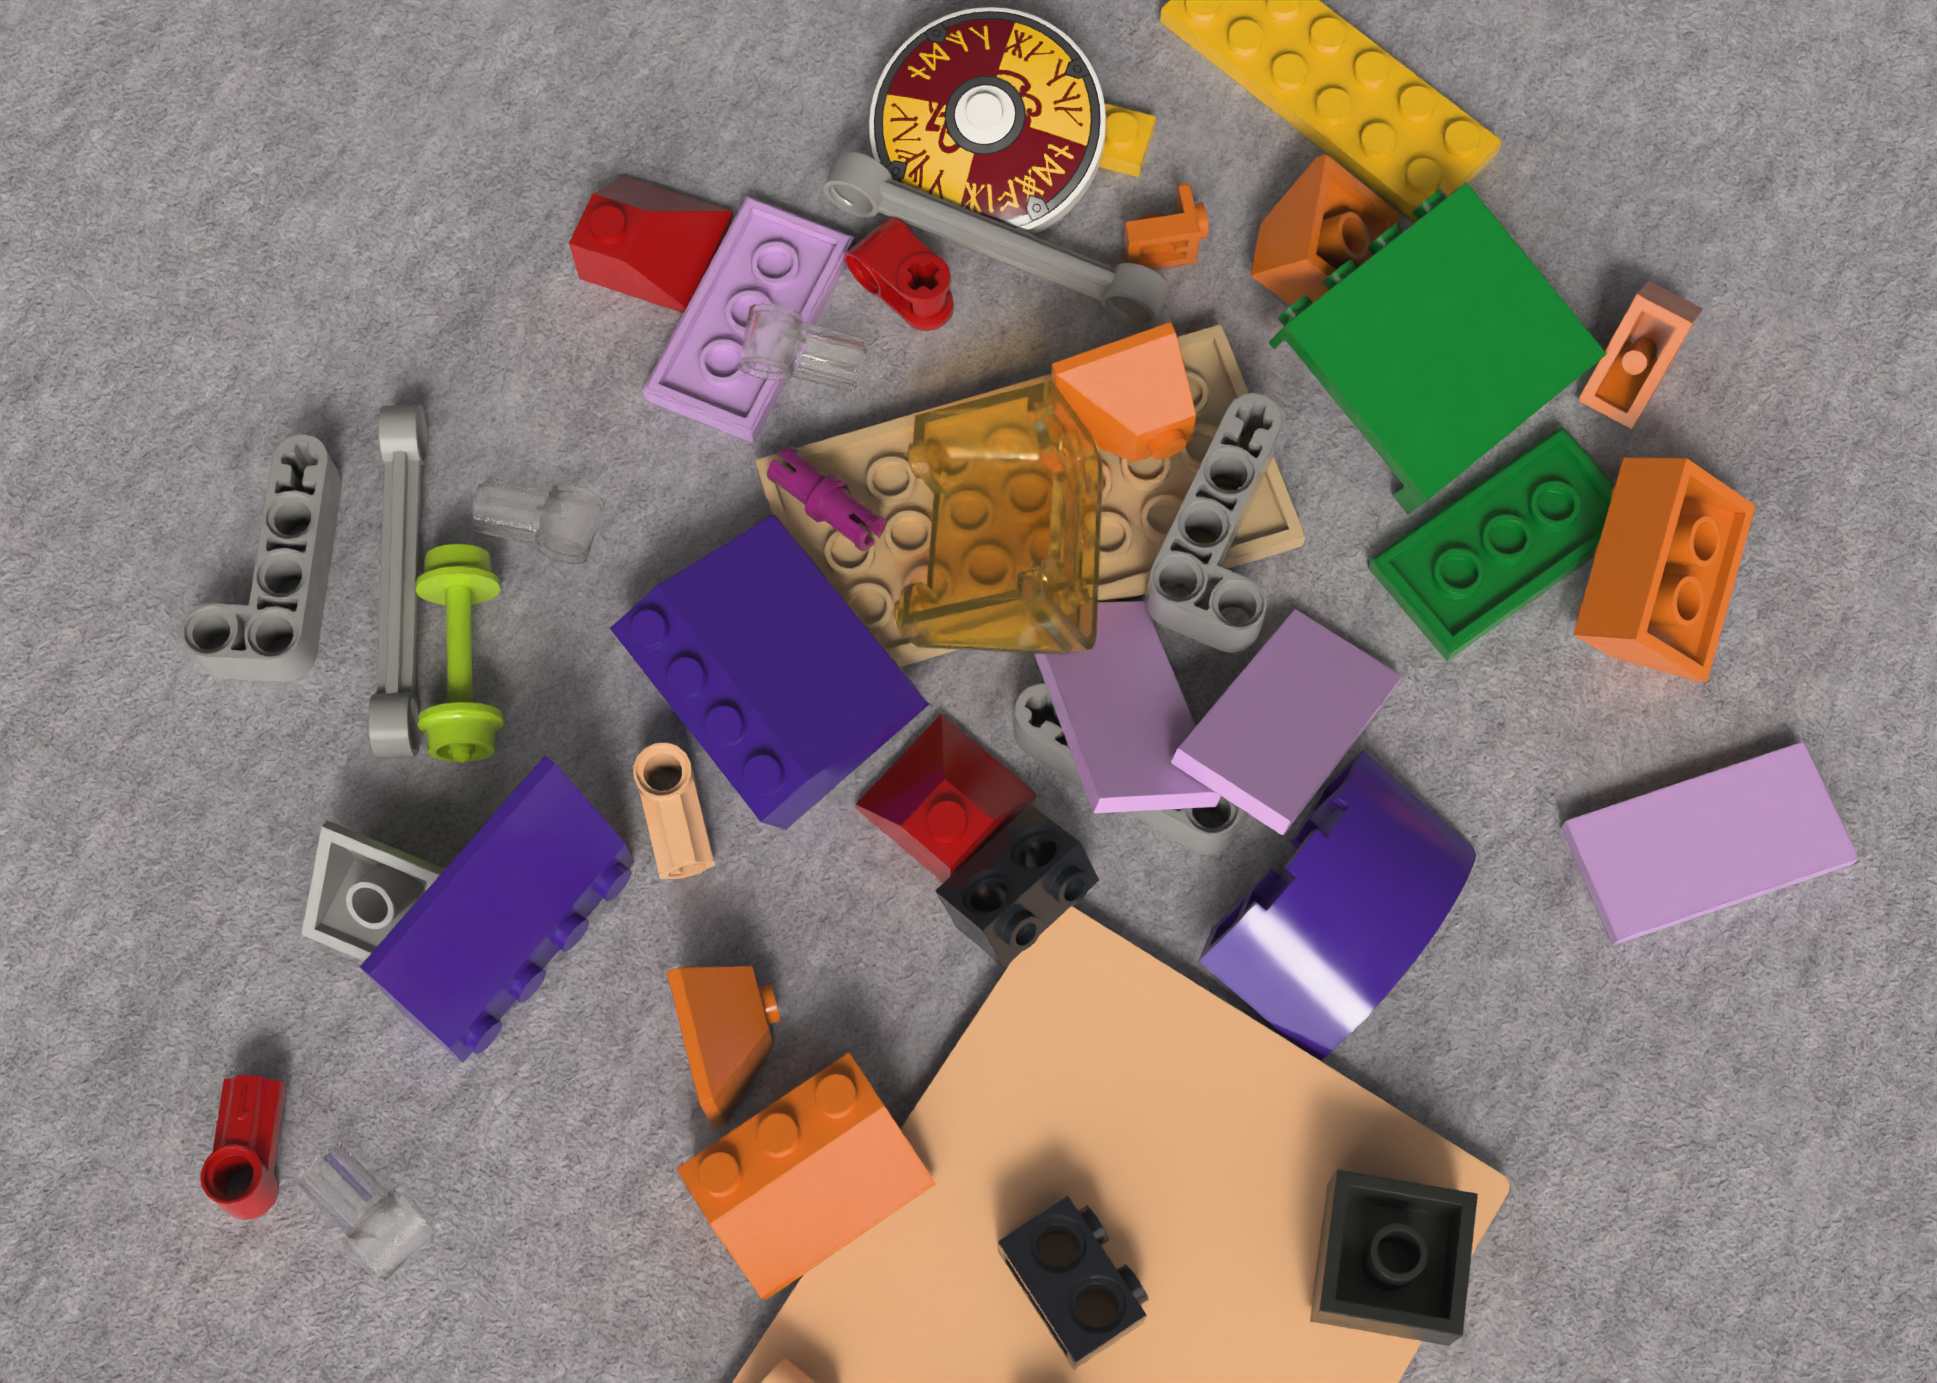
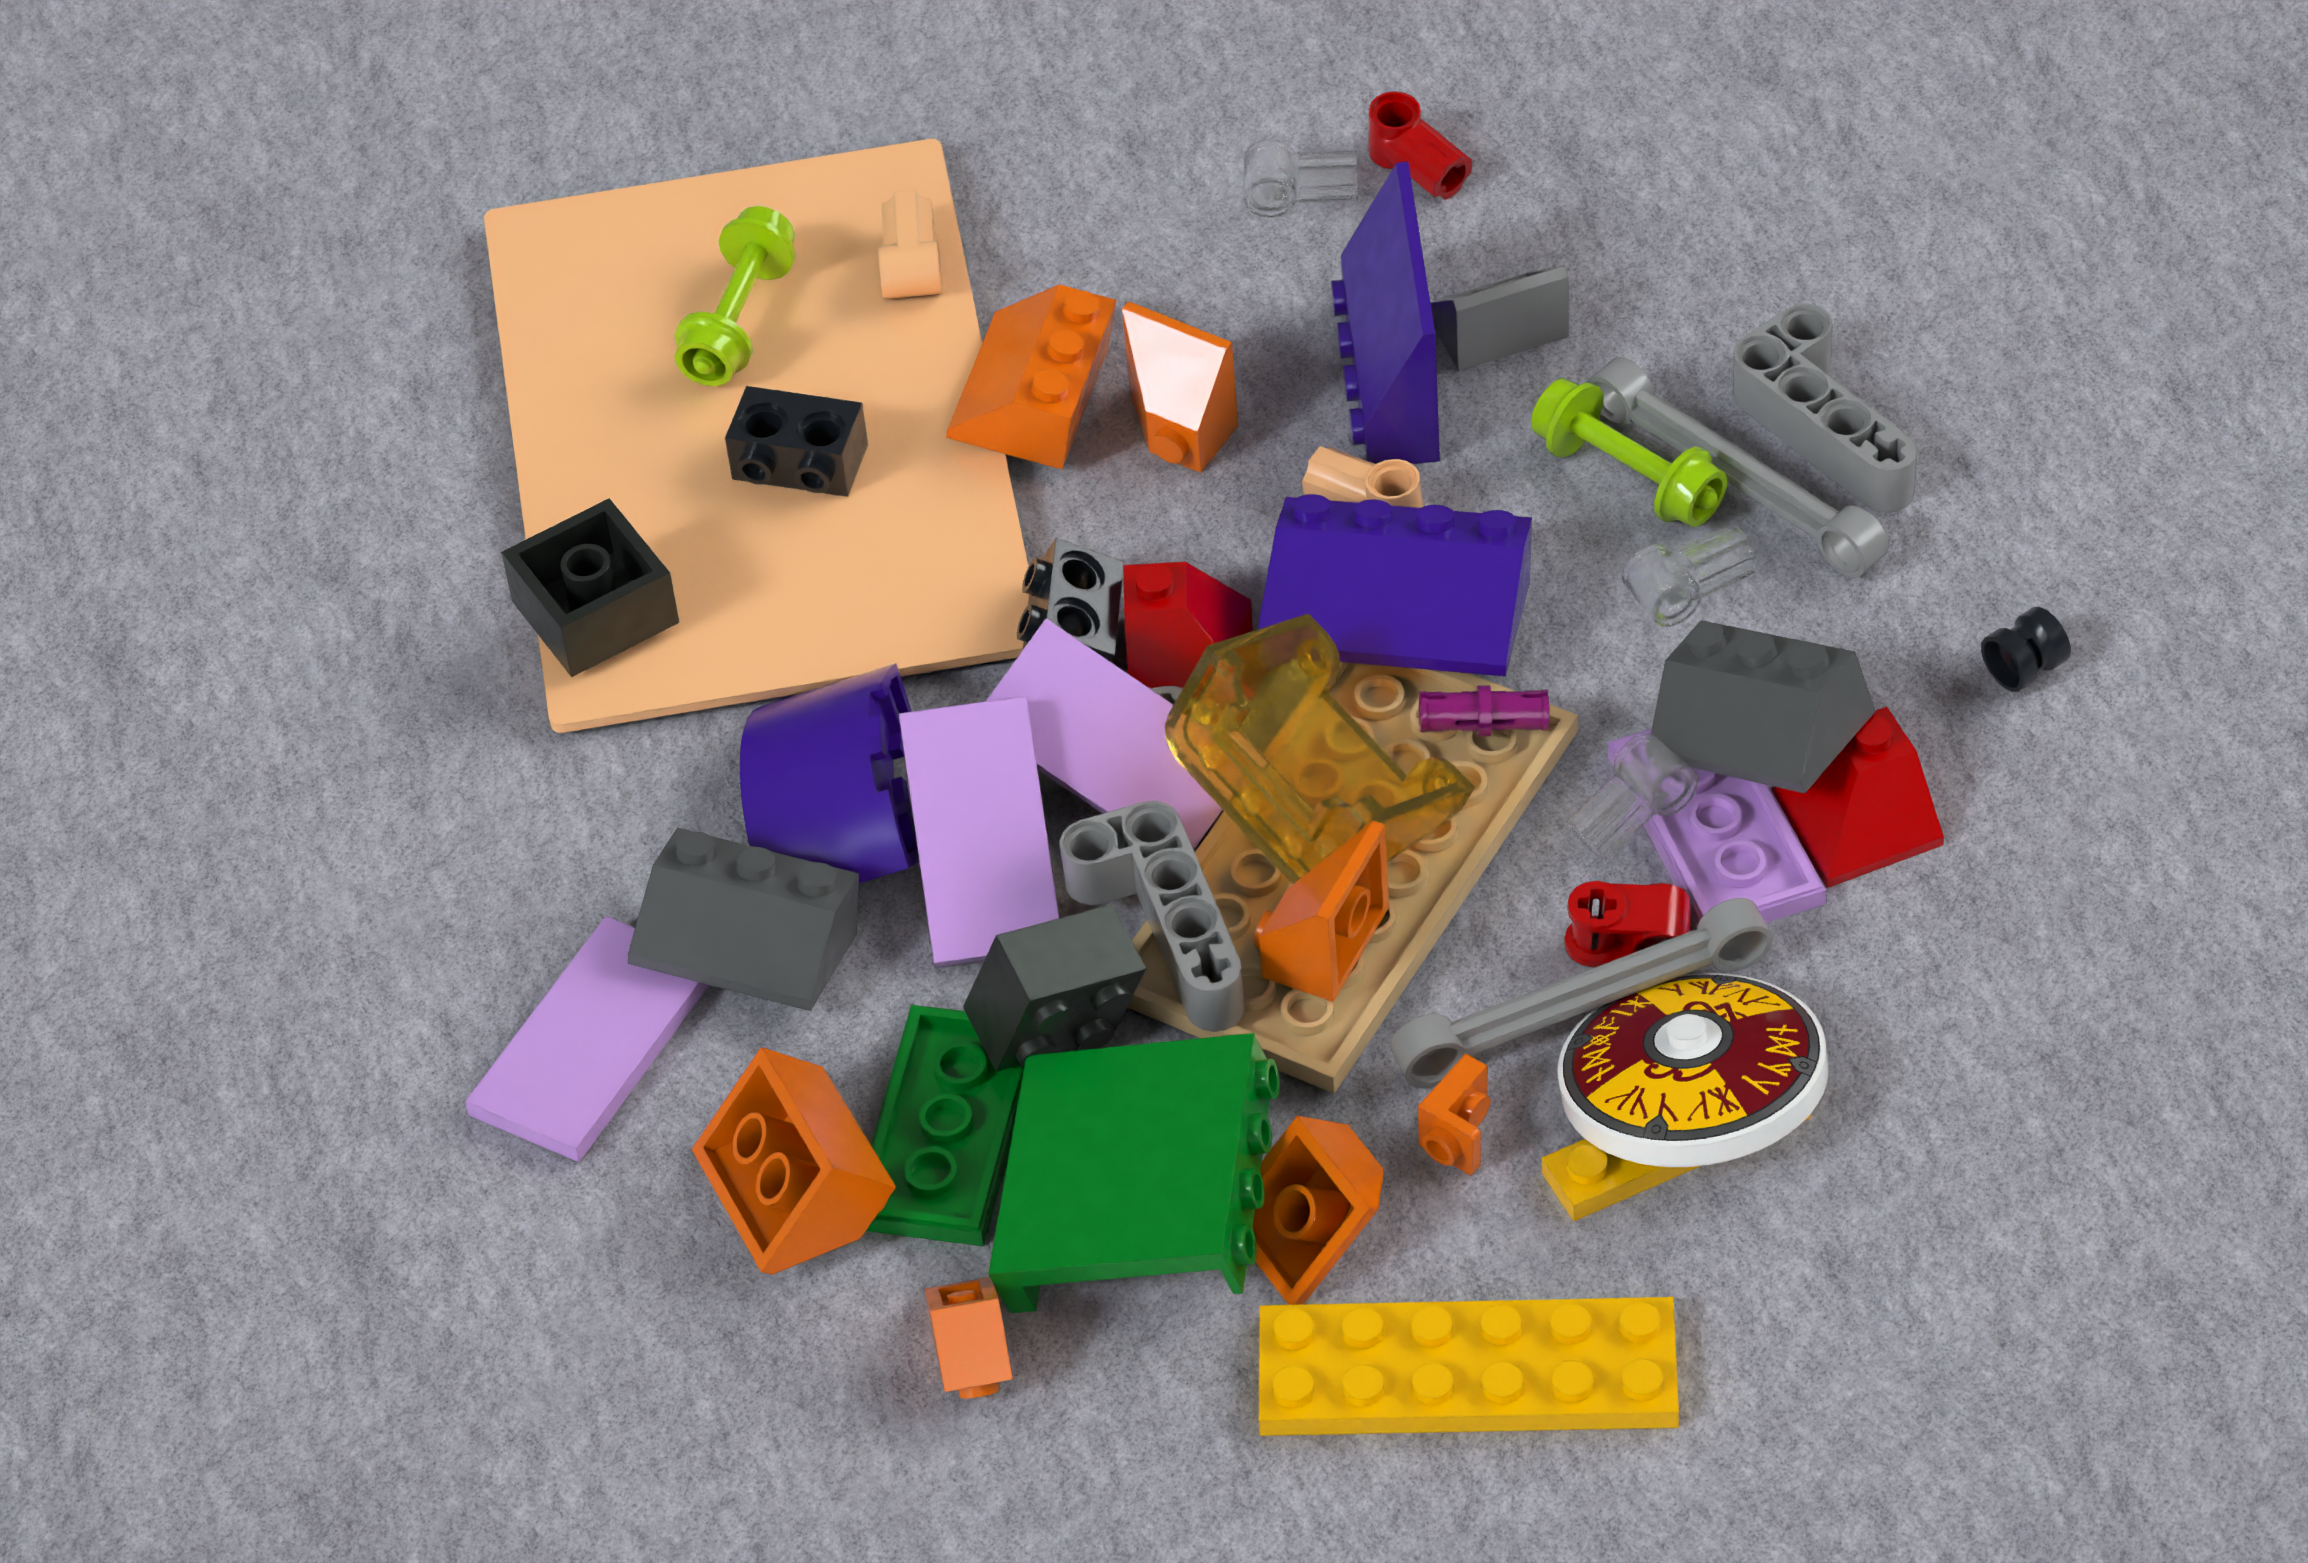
camera: 140 degrees right, 20 degrees down
(399, 246) = (2020, 652): none -> black wheel
(661, 305) = (1759, 705): none -> dark grey slope
(1370, 514) = (1054, 987): none -> pearl dark grey brick
(1529, 813) = (745, 919): none -> dark grey slope

